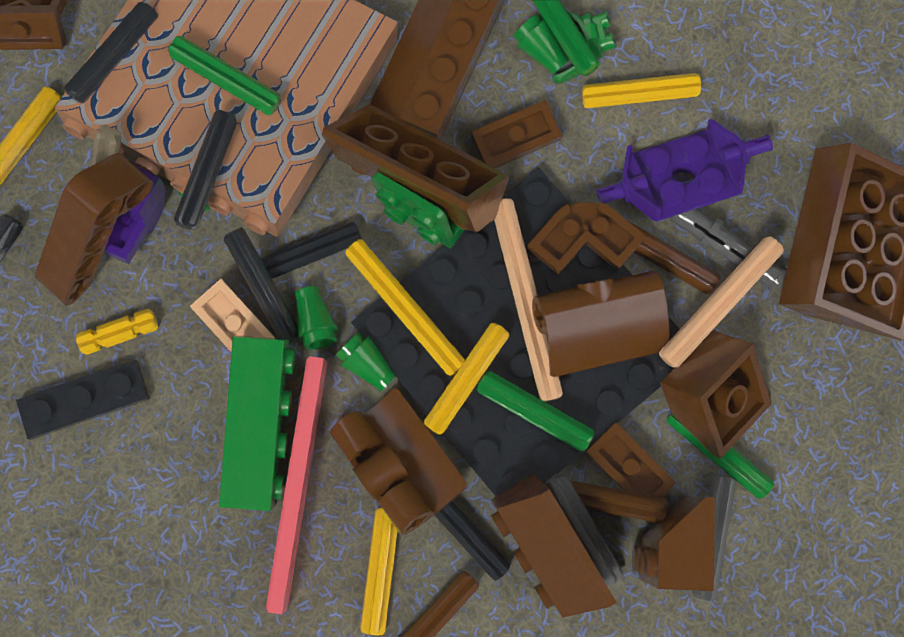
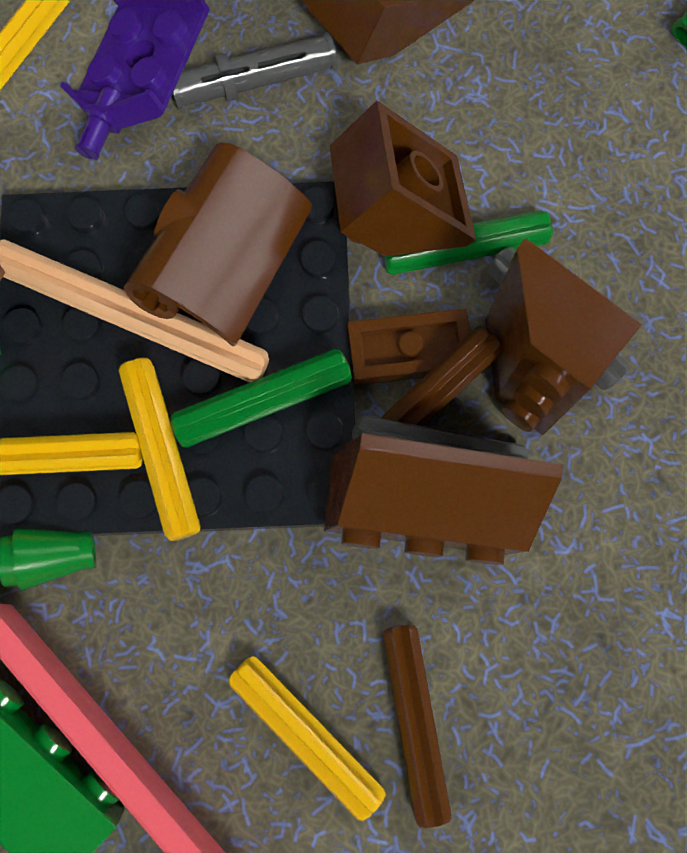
camera: 55 degrees left, 5 degrees down
(398, 461) = (191, 609): reddish brown panel -> none
(473, 541) = (331, 594): black axle -> none
(586, 224) = (94, 193): reddish brown plate -> none
(677, 263) = (194, 146): reddish brown axle -> none
(721, 302) = (306, 112): light nougat axle -> none

